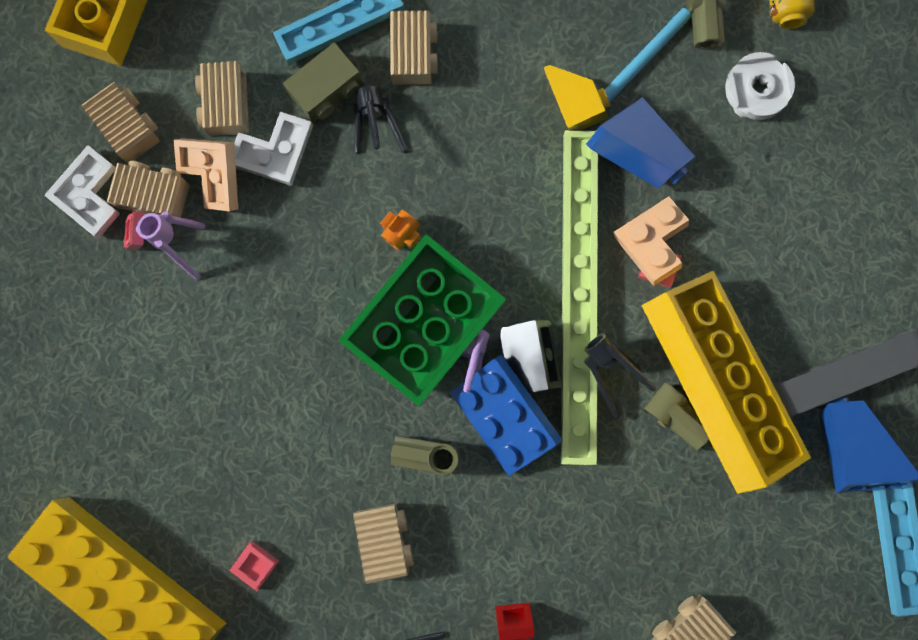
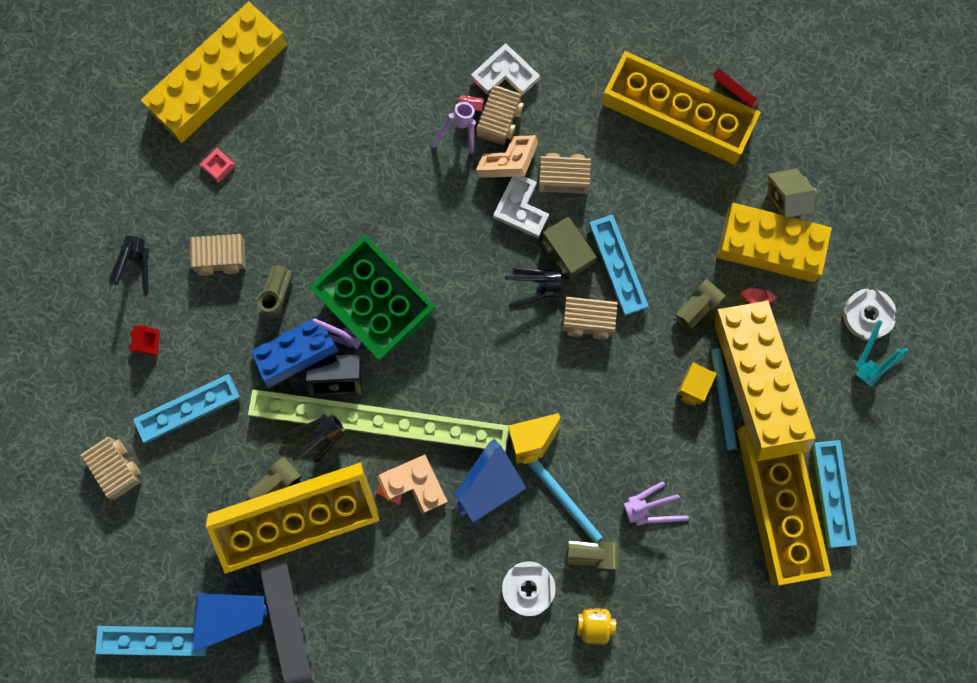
camera: 90 degrees right, 5 degrees down
(121, 122) = (555, 100): tan brick -> none
(400, 230) = (445, 292): orange gear -> none
(598, 549) = (186, 408): none -> medium azure plate

